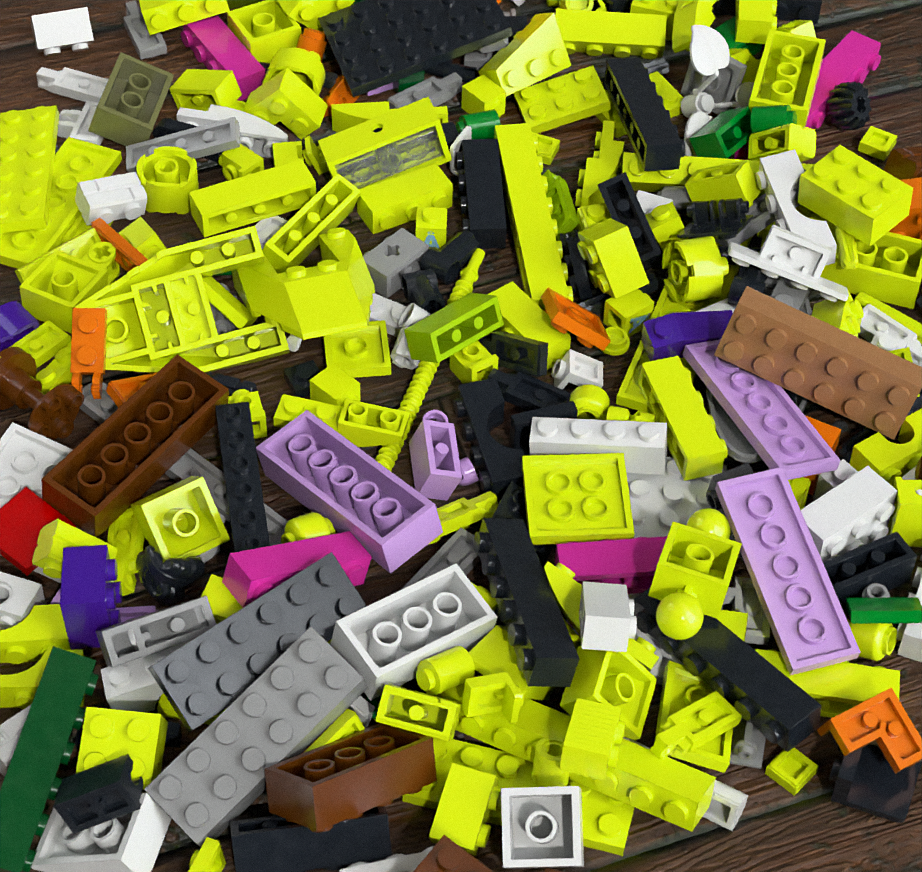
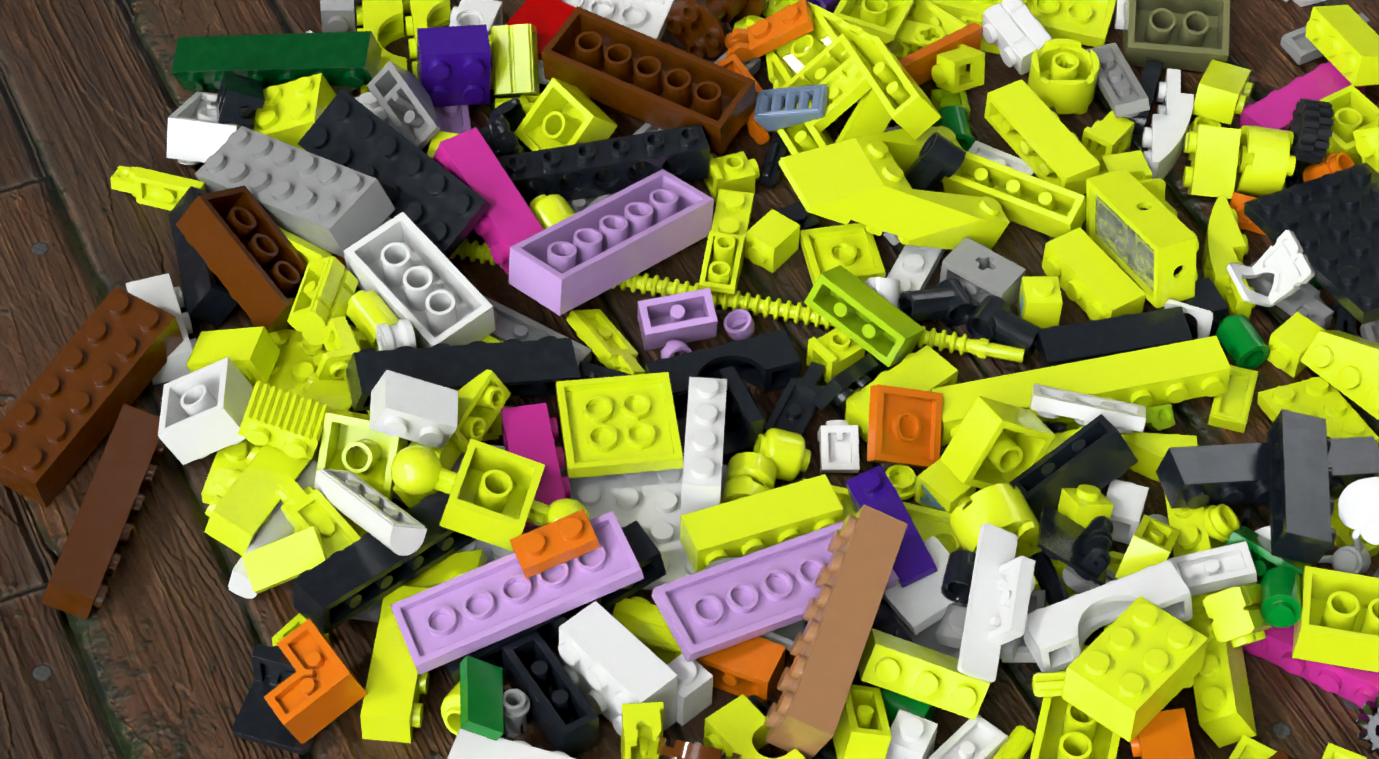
camera: 85 degrees right, 0 degrees up
(202, 348) = (770, 105): none -> sand blue slope
(279, 259) = (935, 161): none -> black piece
(291, 21) = (1311, 130): none -> black tyre
(431, 72) = (1285, 262): none -> white piece
(489, 643) = (395, 335): none -> white wheel
(570, 204) = (1084, 408): none -> white plate
(680, 87) = (1299, 487): none -> brick
(694, 146) = (1220, 522): none -> neon yellow plate
(705, 666) = (371, 510): none -> white brick
(738, 754) = (284, 559): none -> neon yellow tile
(745, 144) = (1216, 568): none -> white plate
(752, 526) = (554, 543): none -> orange plate

